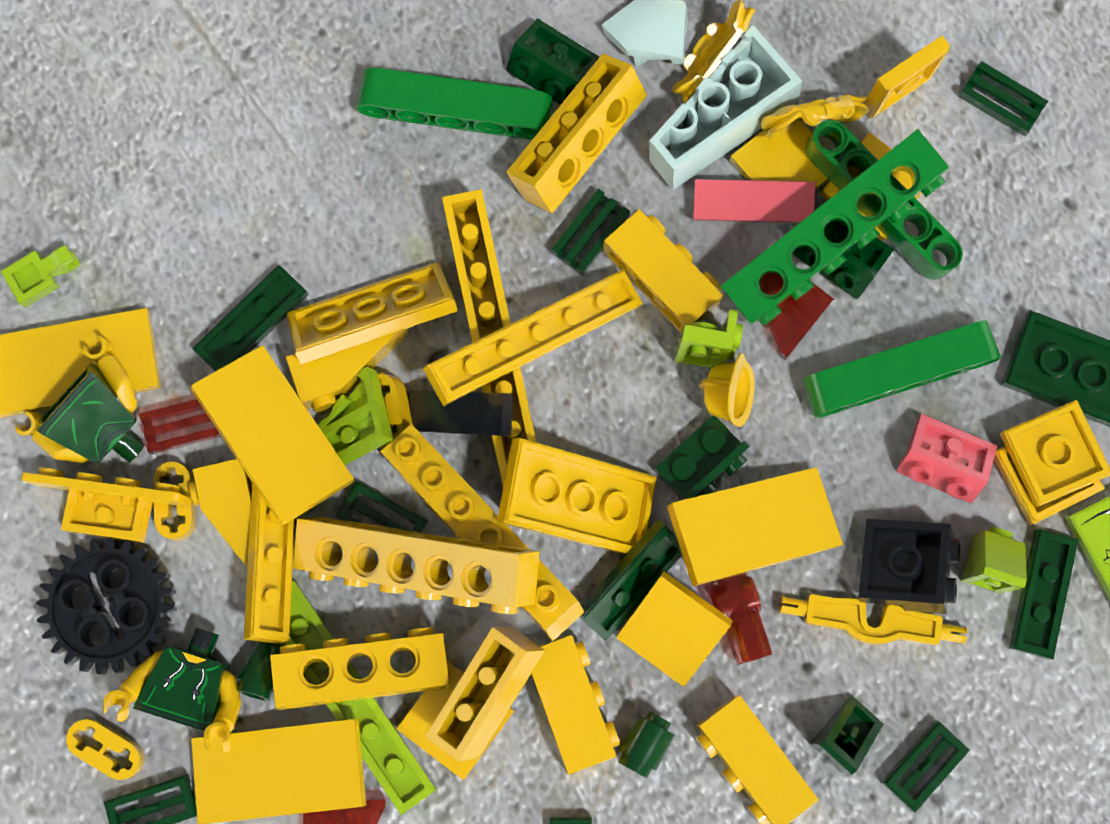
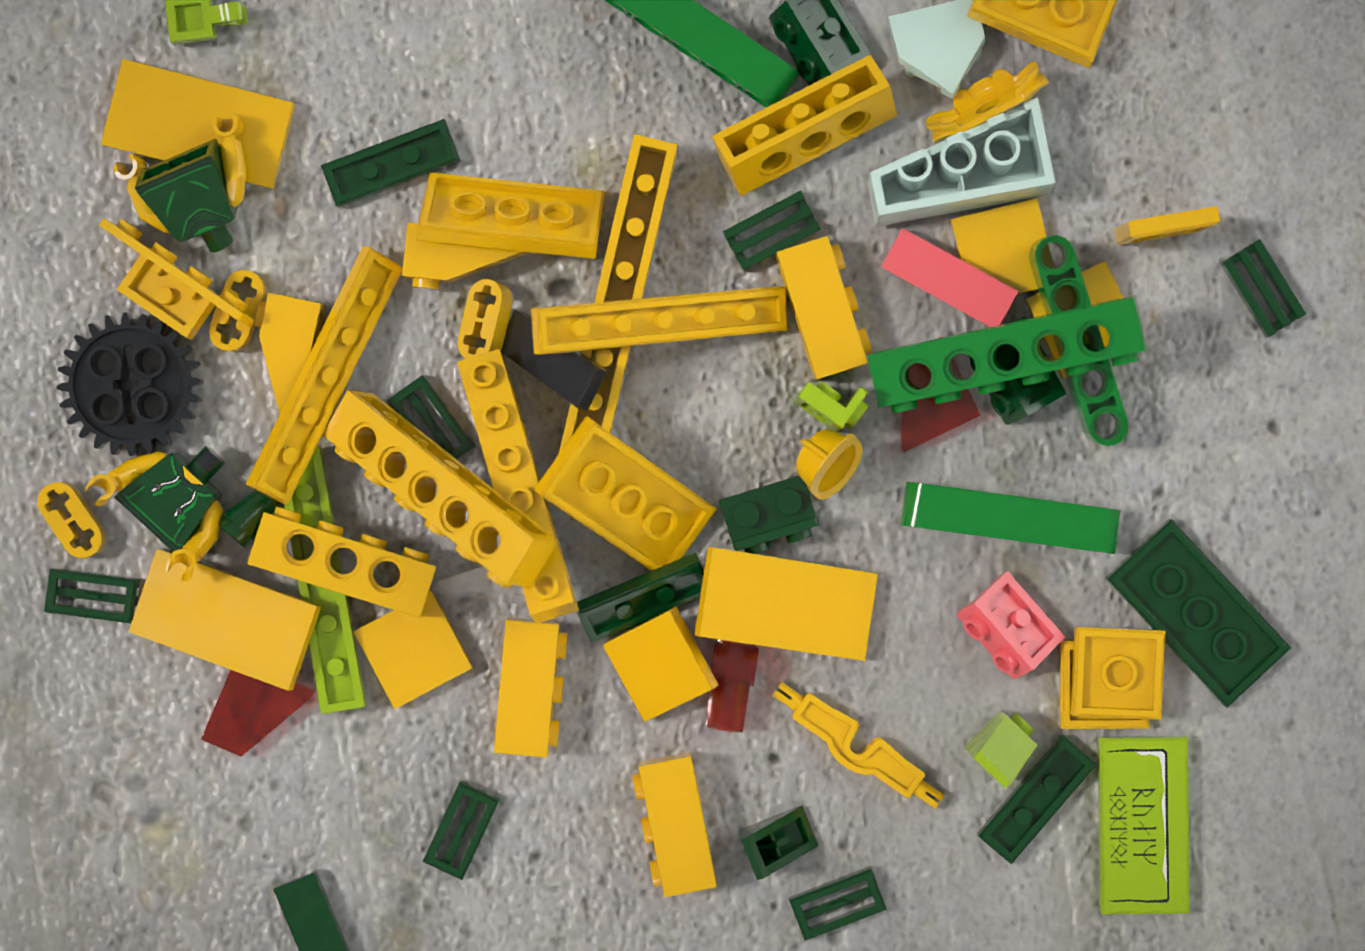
camera: 30 degrees right, 10 degrees up
(150, 431) = (244, 231): clear red tile -> none
(272, 435) = (359, 295): yellow tile -> none
(358, 421) = (444, 321): lime wing -> none
(485, 693) = (450, 642): yellow brick -> none
(646, 744) = (581, 758): dark green brick -> none
(841, 108) = (1063, 223): yellow piece -> none
(909, 565) = (916, 711): black plate -> none

